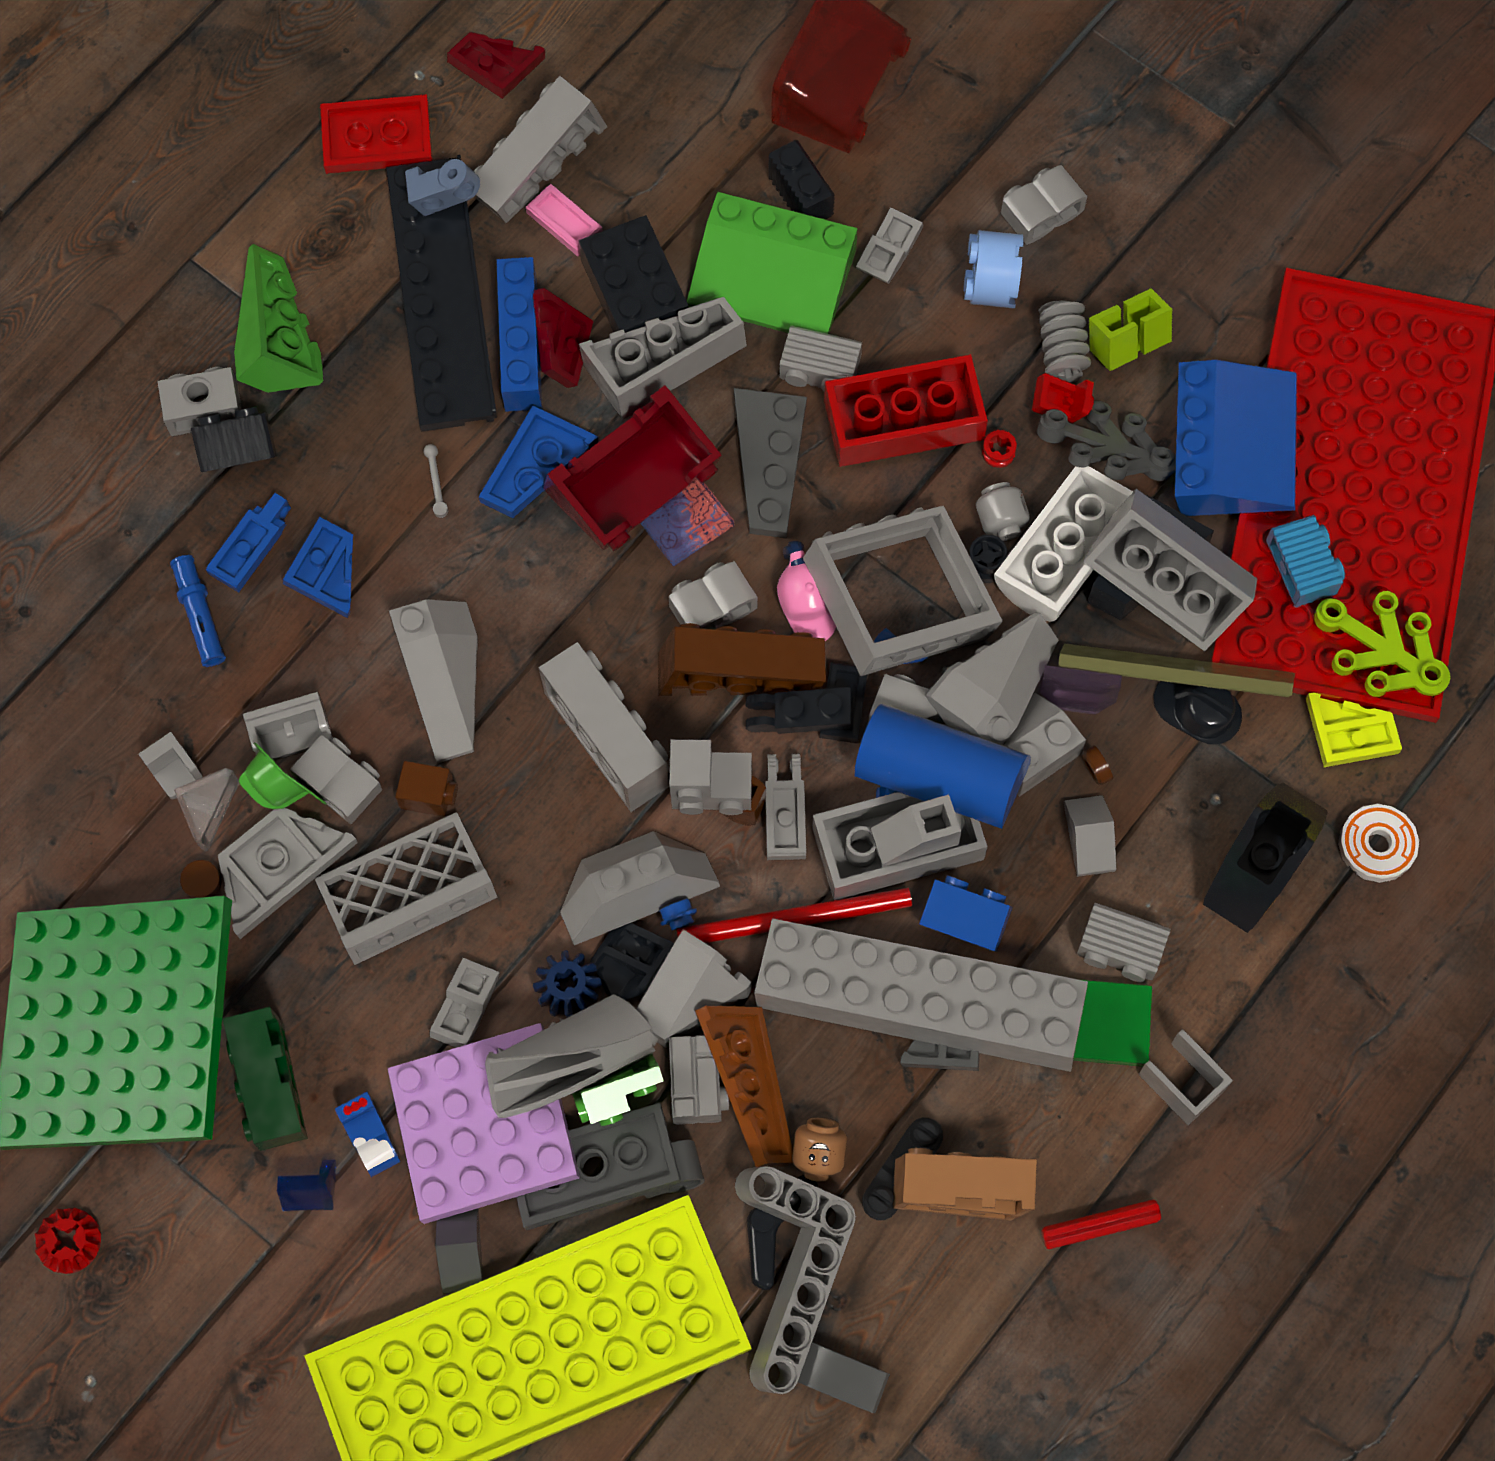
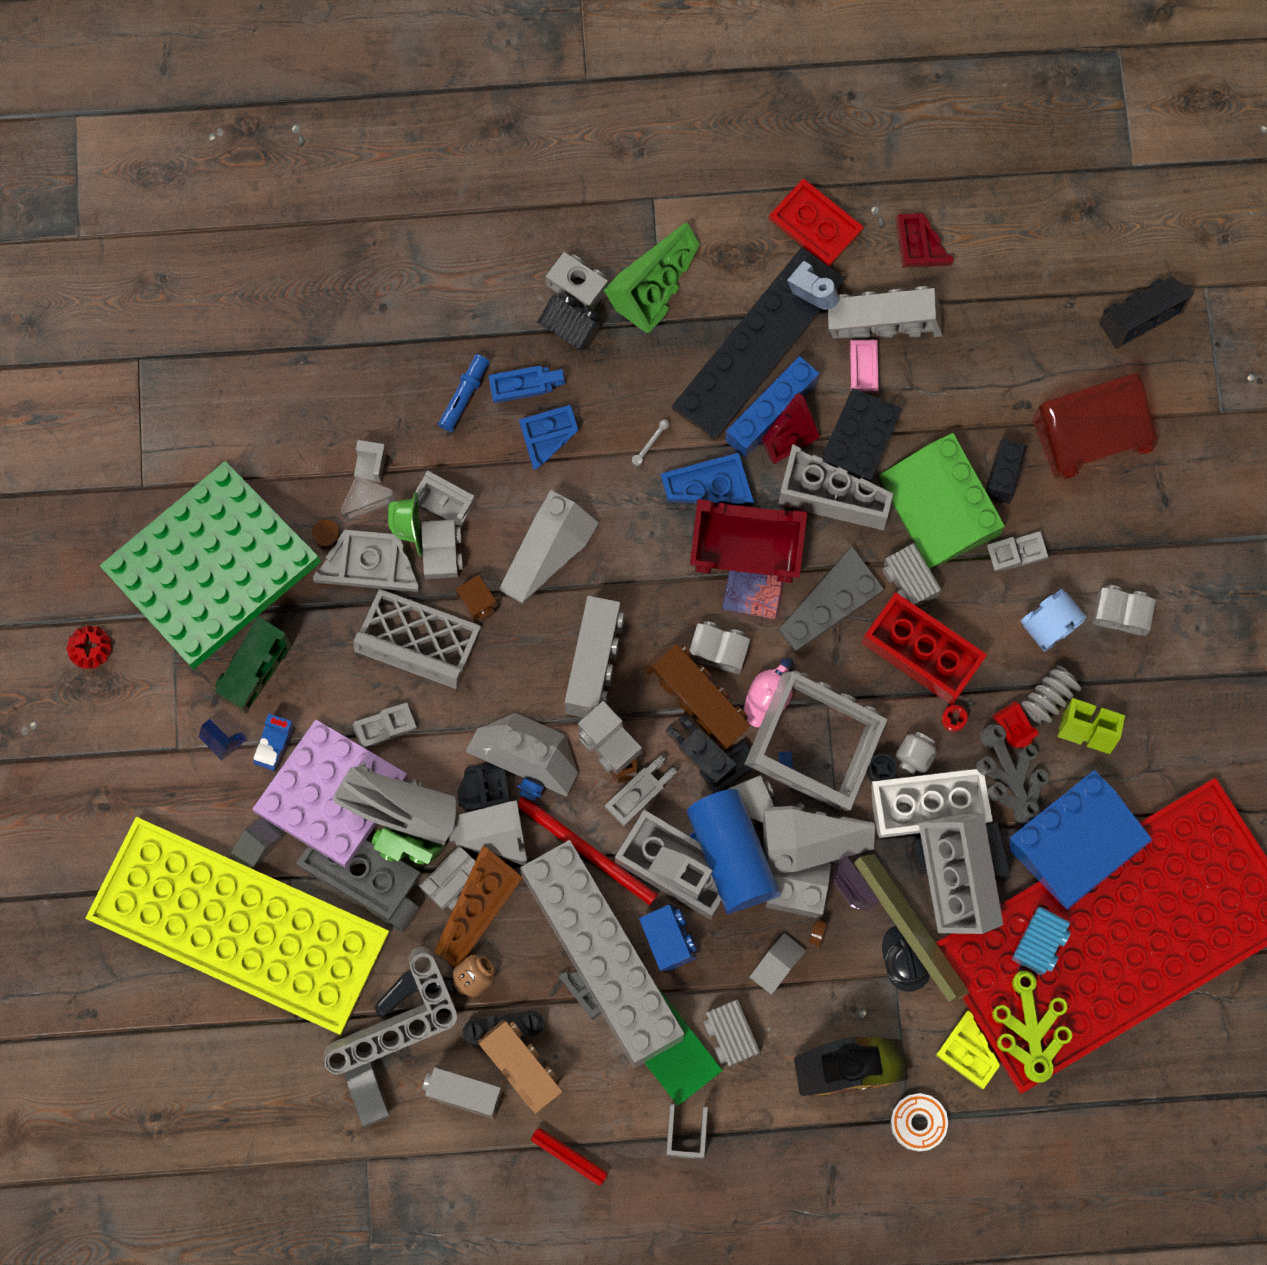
camera: 45 degrees right, 5 degrees up
(563, 971) = (434, 776): dark blue gear -> none
(937, 1270) = (462, 1092): none -> light grey brick

